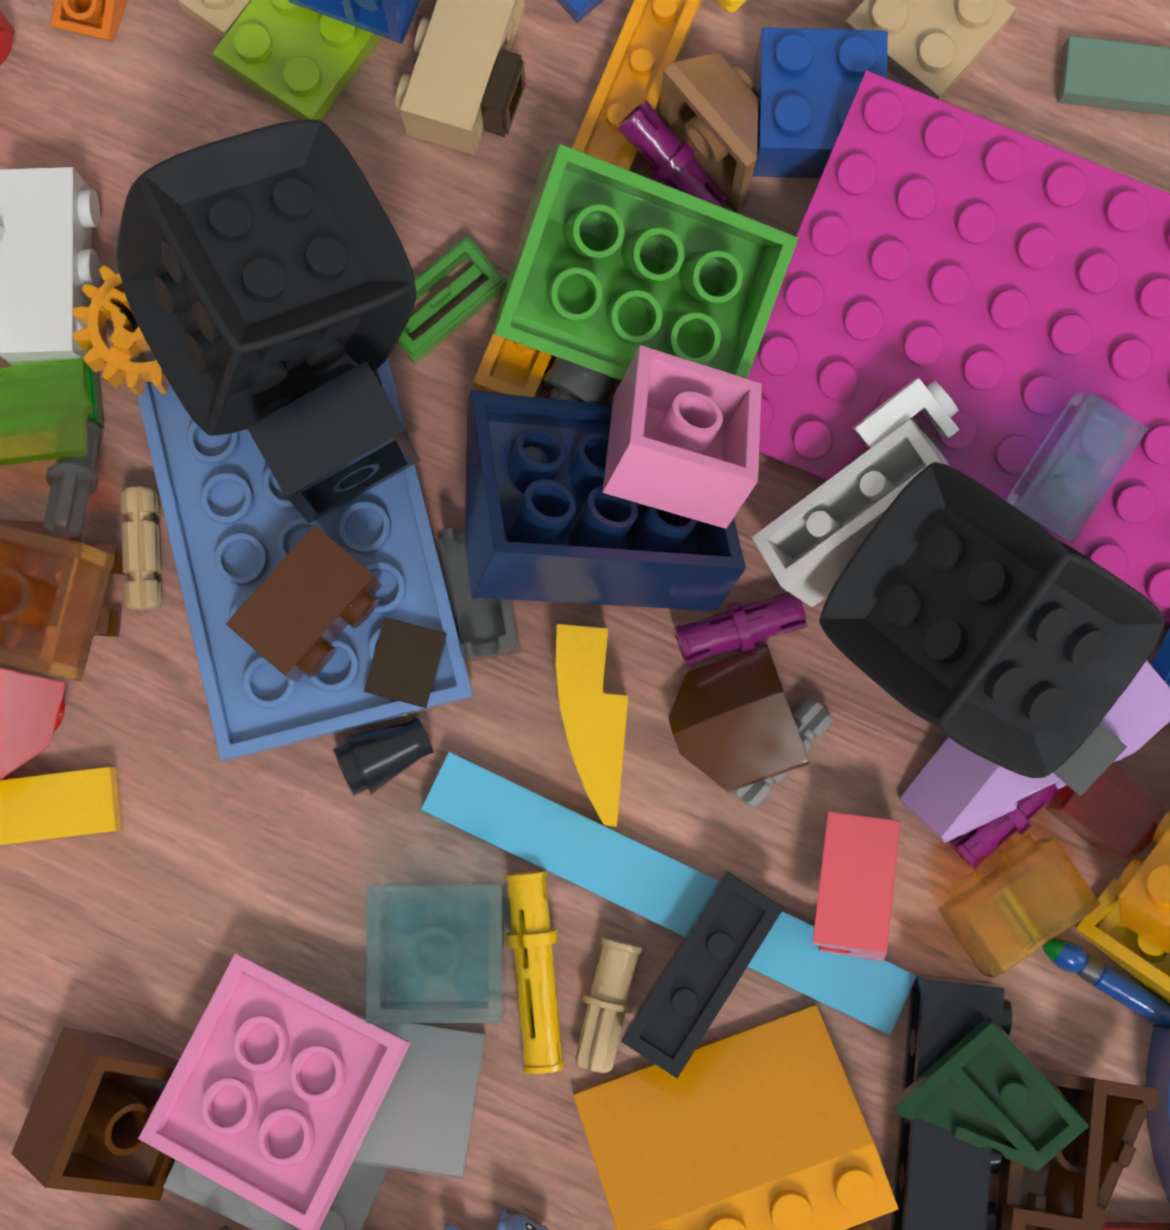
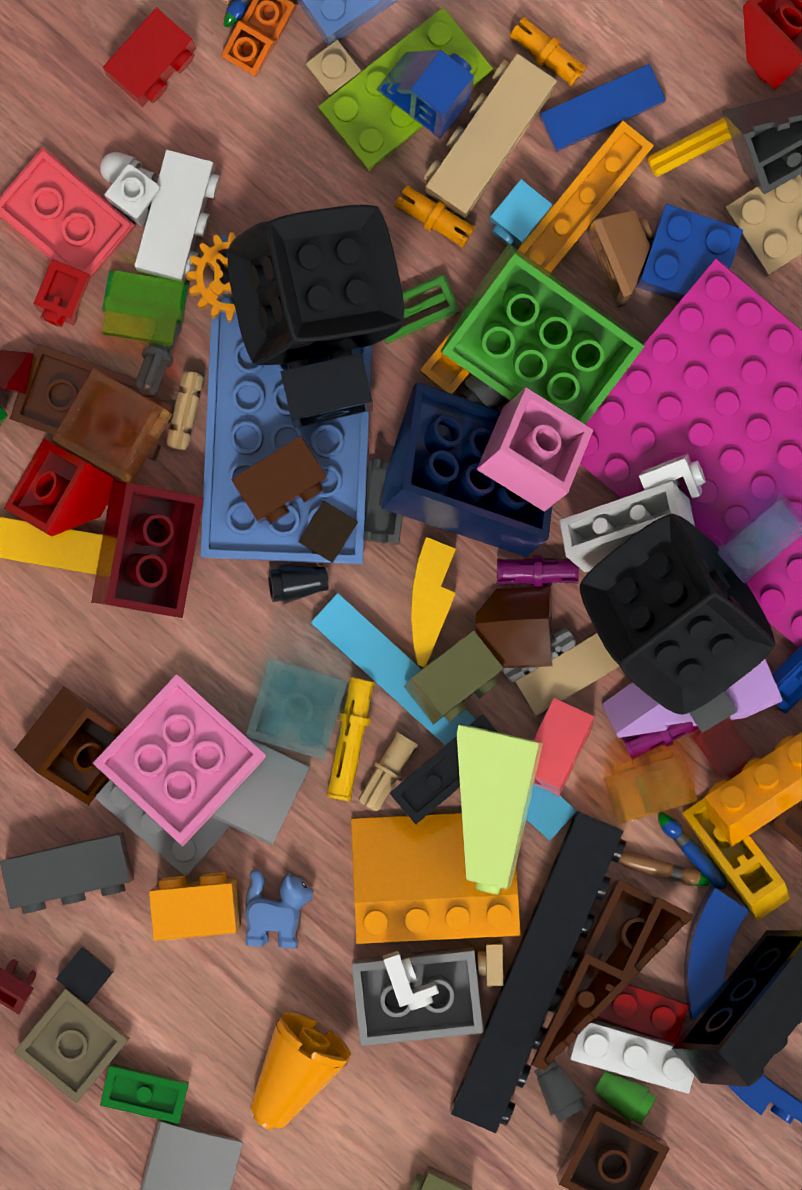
camera: 15 degrees right, 5 degrees up
(132, 773) = (147, 549): none -> dark red brick
(428, 158) = (435, 216): none -> light orange pin
(503, 93) = (494, 190): dark brown tile -> none
(549, 111) = (519, 214): none -> medium azure brick
(665, 827) = (454, 678): none -> olive brick
(667, 155) = (585, 267): magenta pin -> none
(790, 997) = (496, 793): none -> yellowish green slope
(840, 762) = (568, 675): none -> tan tile
(994, 1099) = (594, 888): dark green wing -> none
(1080, 1025) = (663, 869): none -> medium nougat piece

